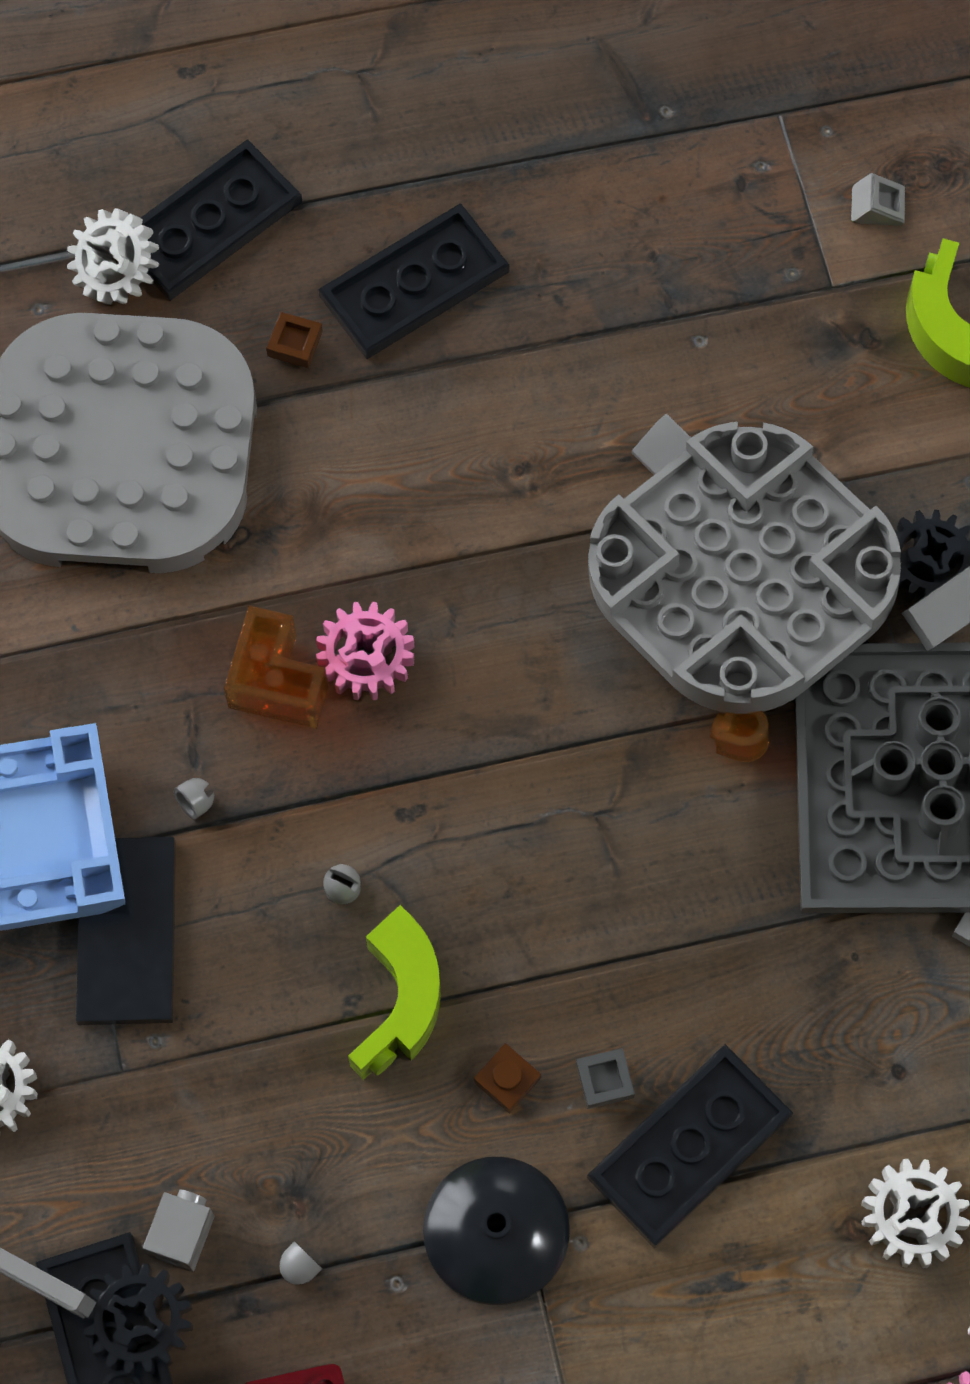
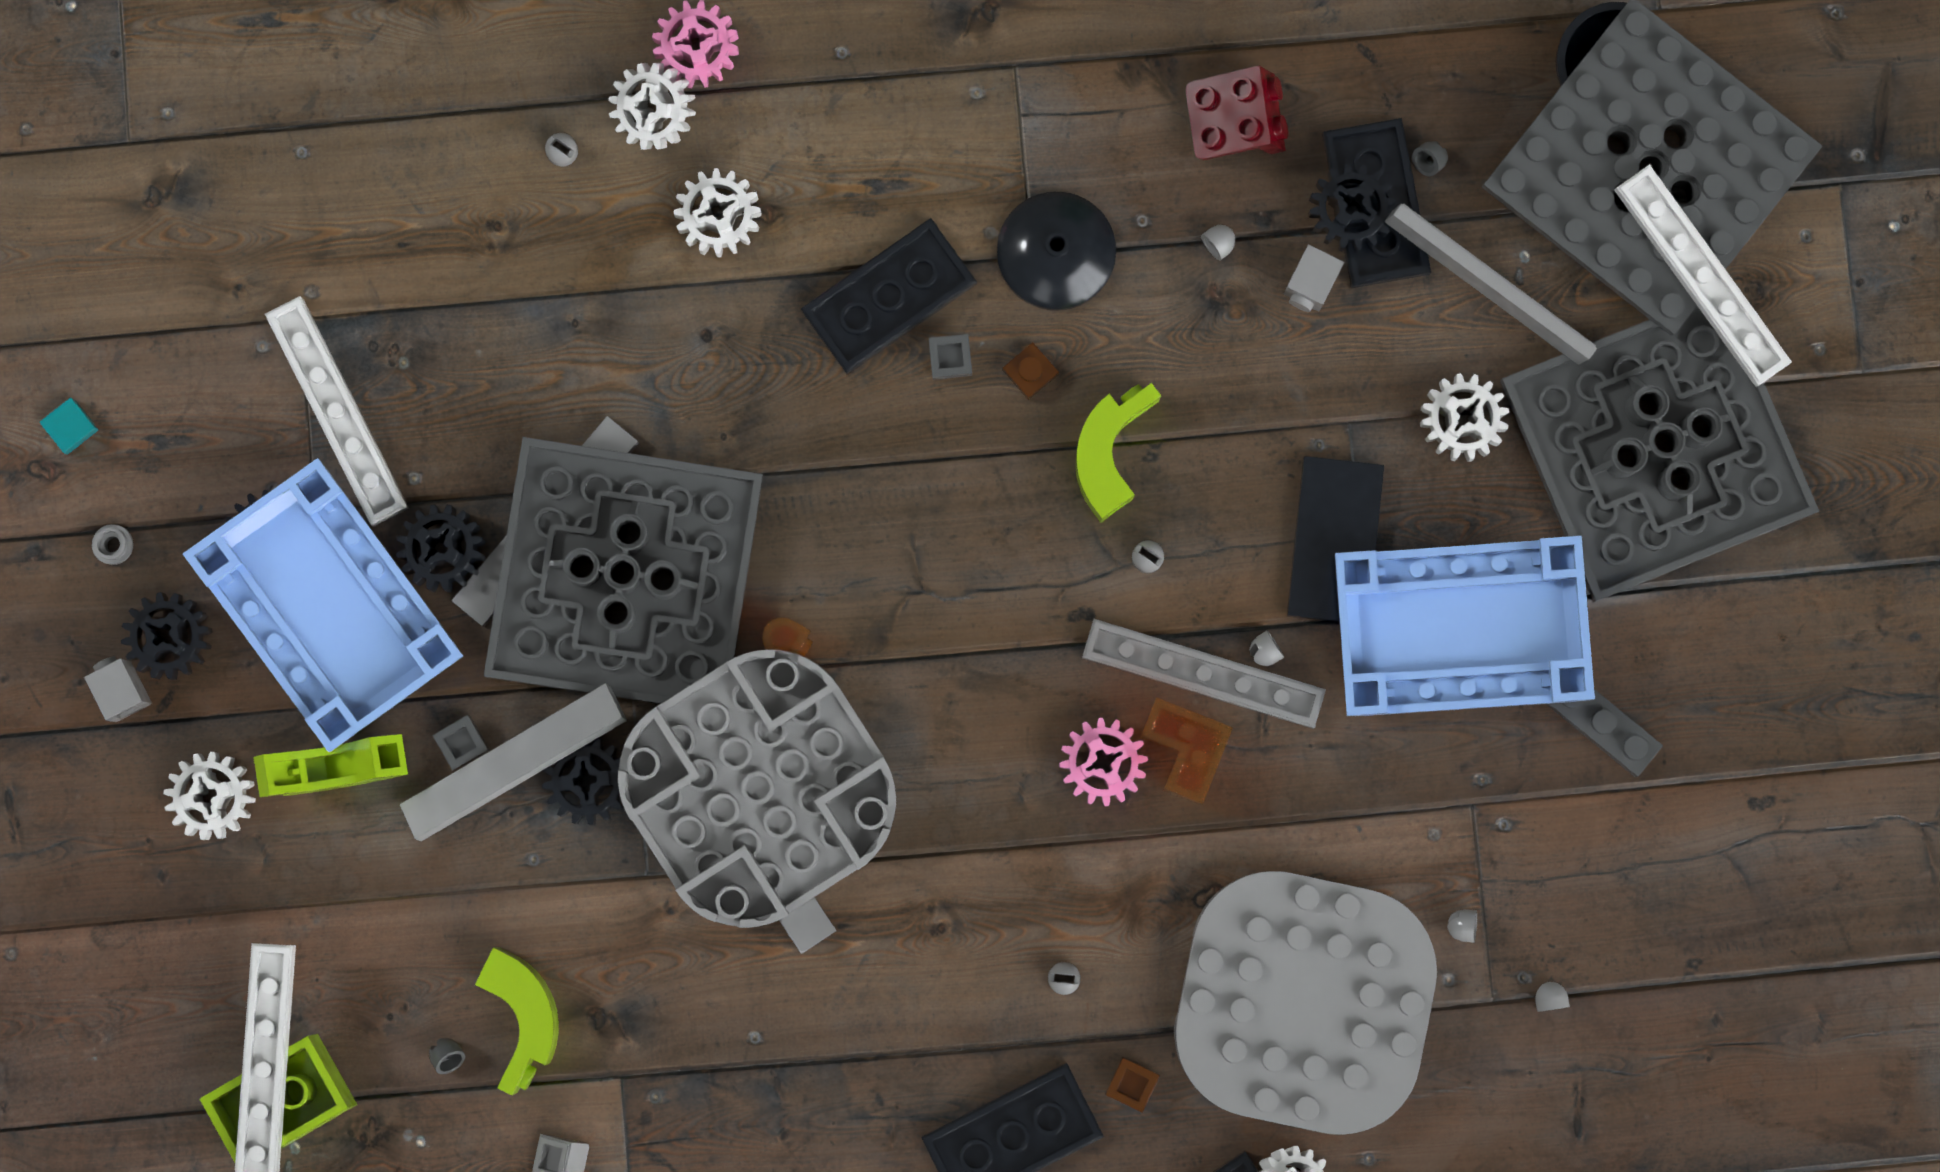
camera: 170 degrees left, 15 degrees up
(264, 764) = (1204, 673): none -> light grey tile
(380, 441) = (1064, 968): none -> light grey hinge

